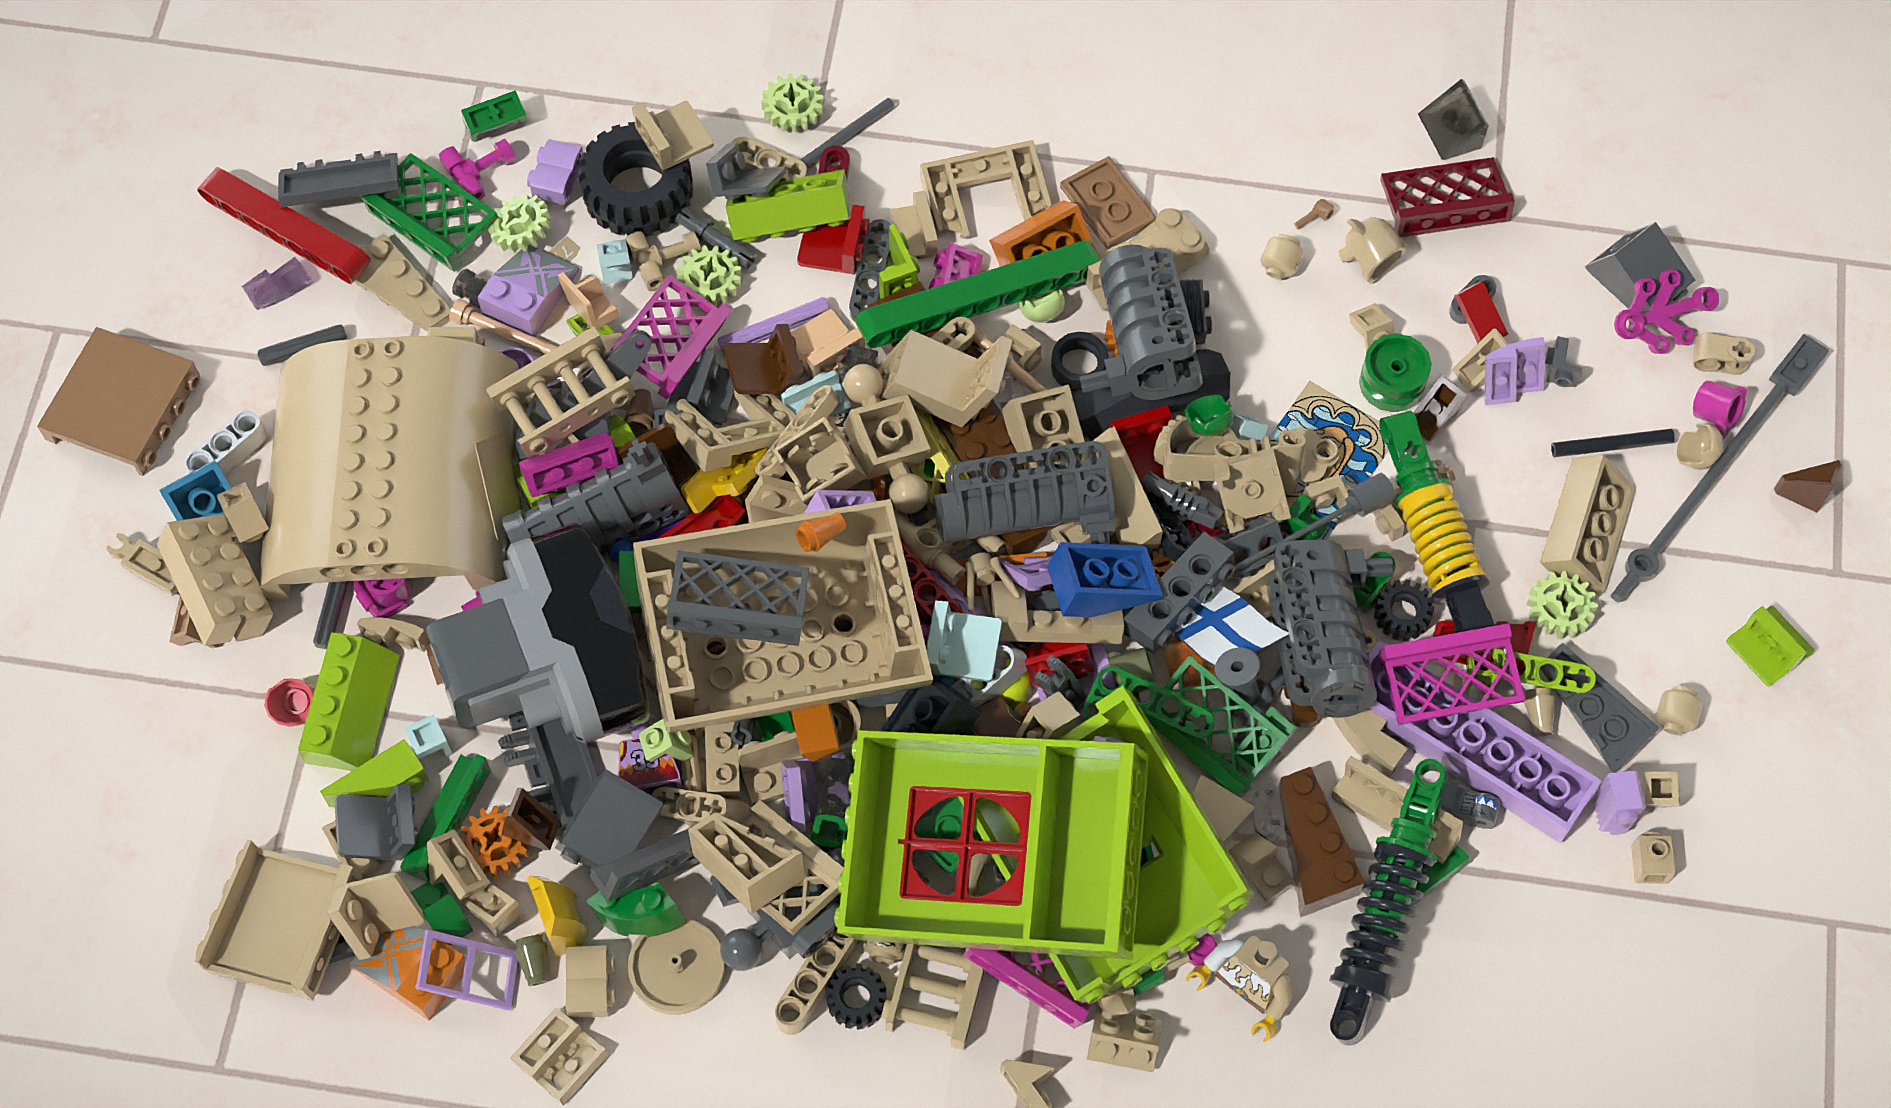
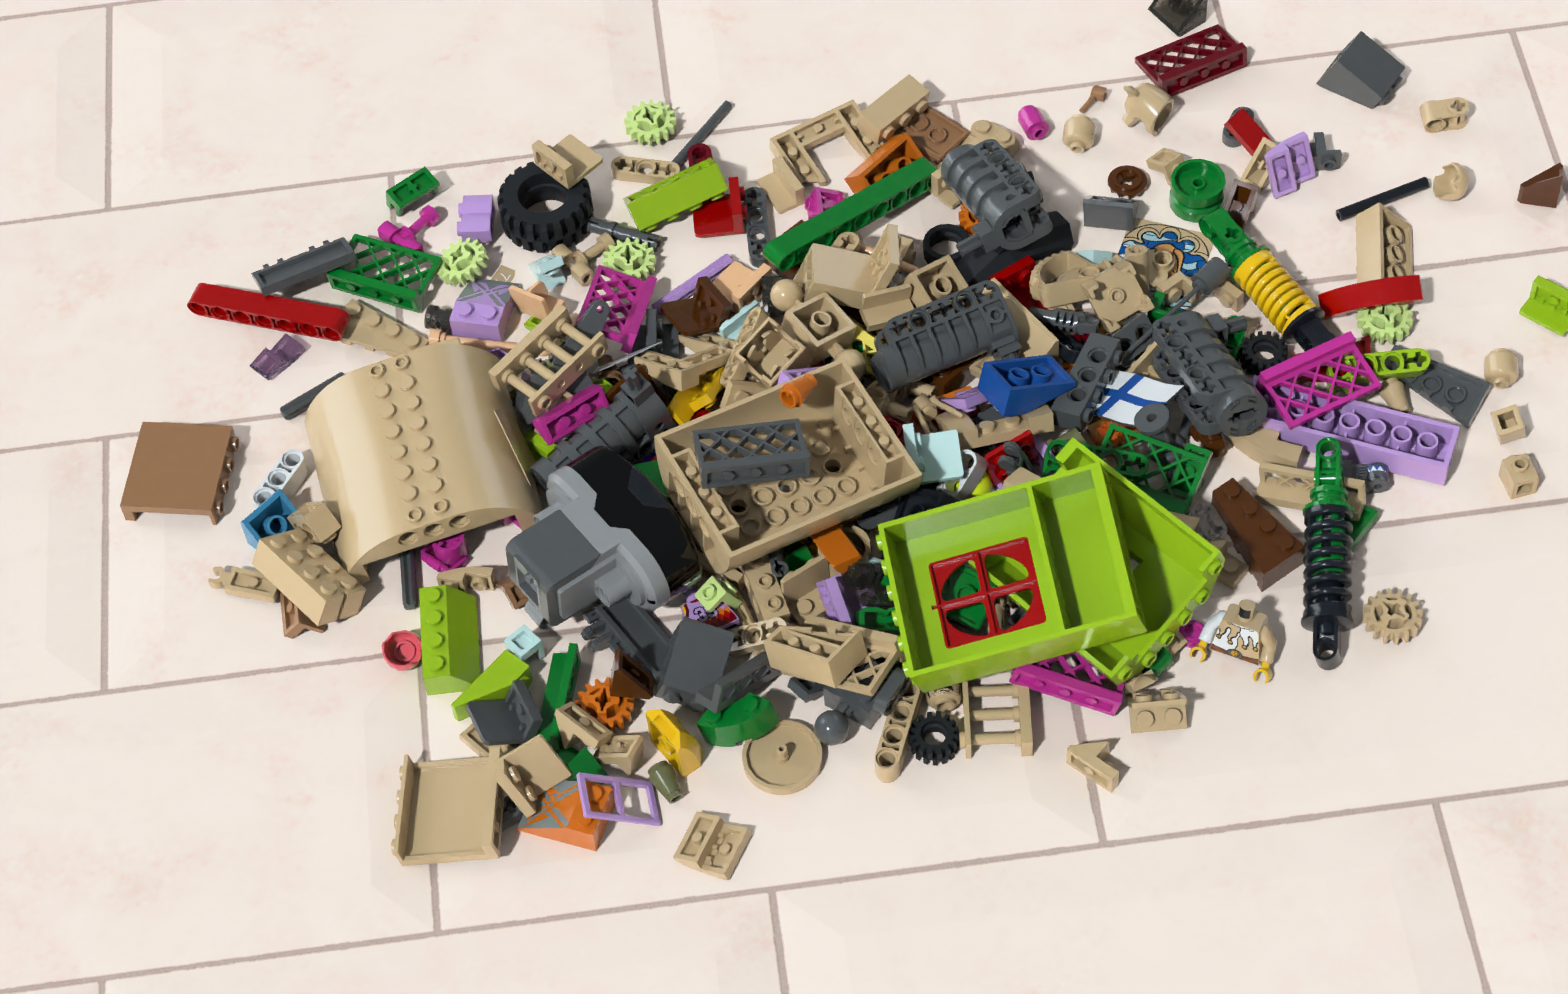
camera: 10 degrees left, 10 degrees down
(588, 981) = (717, 785): tan brick -> none
(651, 405) = (622, 358): none -> white sticker
(732, 181) = (621, 188): dark grey bracket -> none
(904, 268) = (781, 211): lime bracket -> none
(977, 432) = (884, 304): none -> tan panel
(1043, 307) = (905, 215): yellowish green hair -> none
(1074, 167) = (893, 109): none -> tan brick
(1209, 415) = (1065, 252): green hair -> none
(1233, 226) = (1032, 122): none -> dark pink brick
(1285, 368) = (1110, 212): none -> dark grey slope
(1323, 324) = (1128, 174): none -> reddish brown gear
(1447, 1011) = (1392, 616): none -> tan gear
(1554, 573) = (1371, 295): none -> red slope
(1619, 802) = (1478, 440): lavender brick -> none
(1660, 312) = (1387, 97): dark pink plant -> none
(1719, 405) = (1455, 147): dark pink piece -> none
(1789, 378) = (1500, 118): dark grey bar -> none

